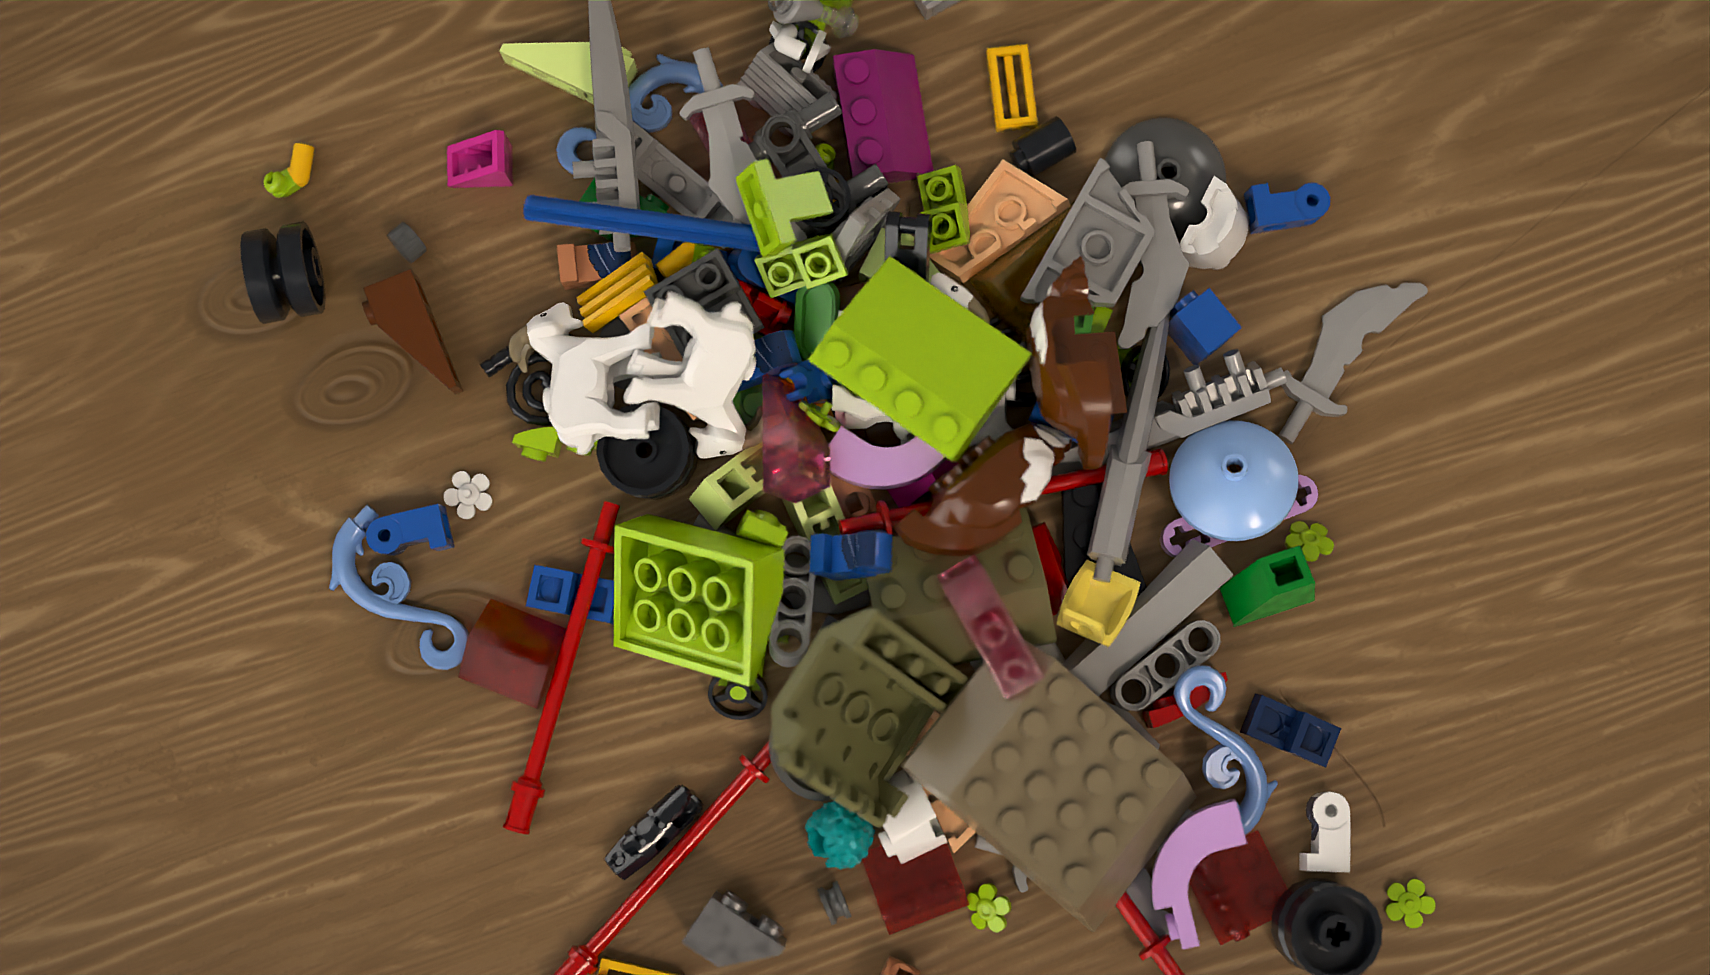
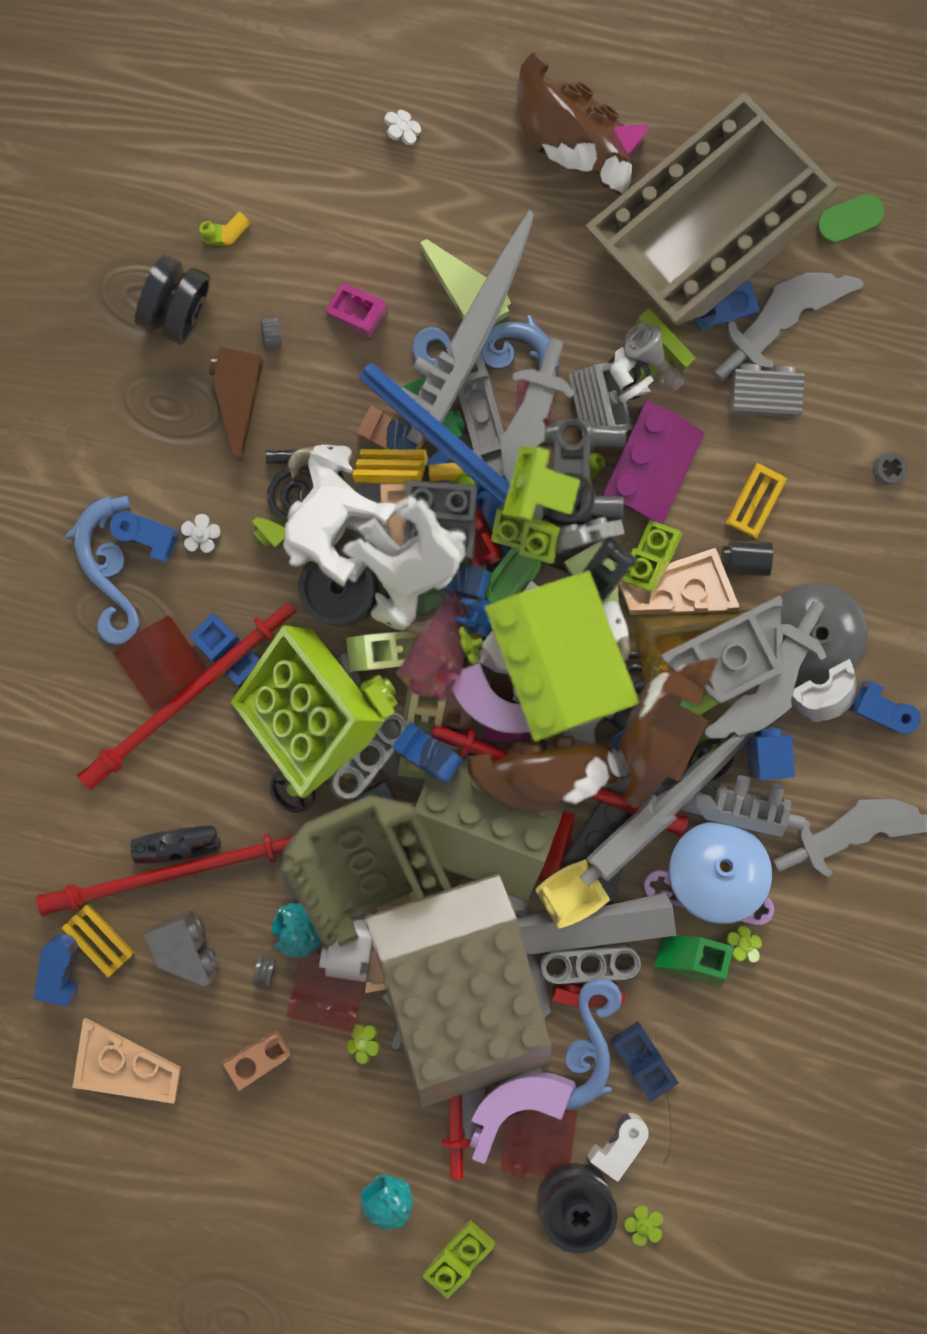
camera: 45 degrees right, 5 degrees up
(990, 626) = (486, 865): clear pink slope -> none

